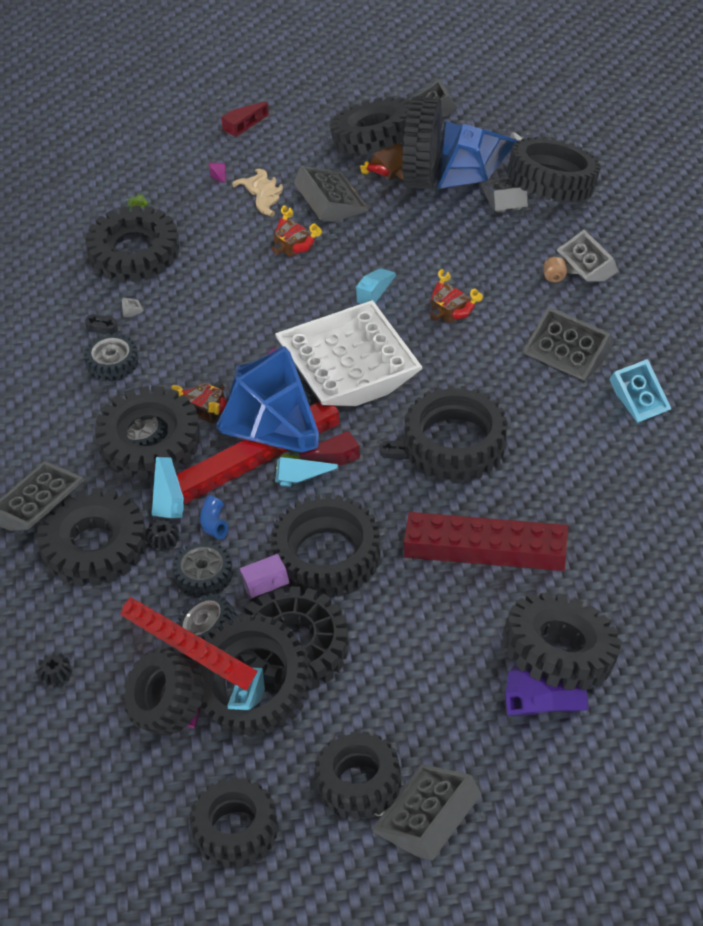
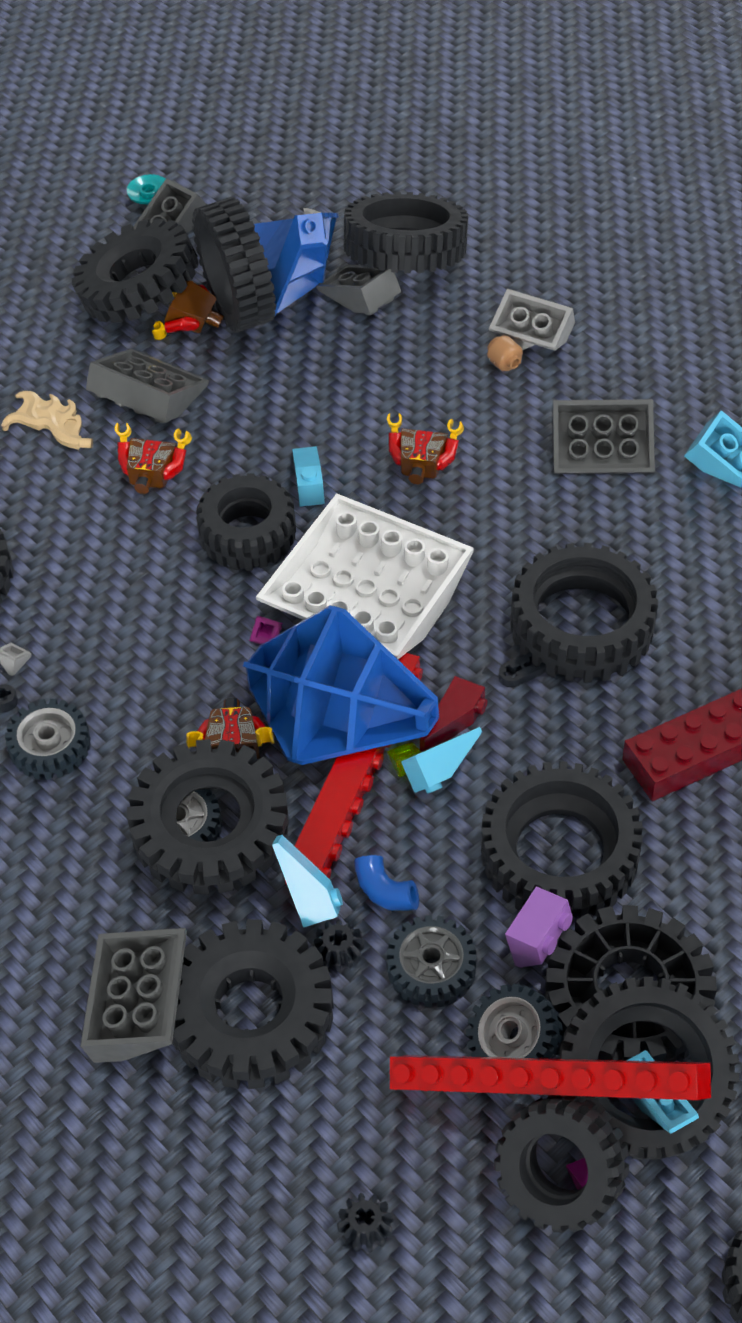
camera: 35 degrees left, 5 degrees up
(309, 279) = (249, 545): none -> black tyre
(428, 79) = (144, 188): none -> teal dish

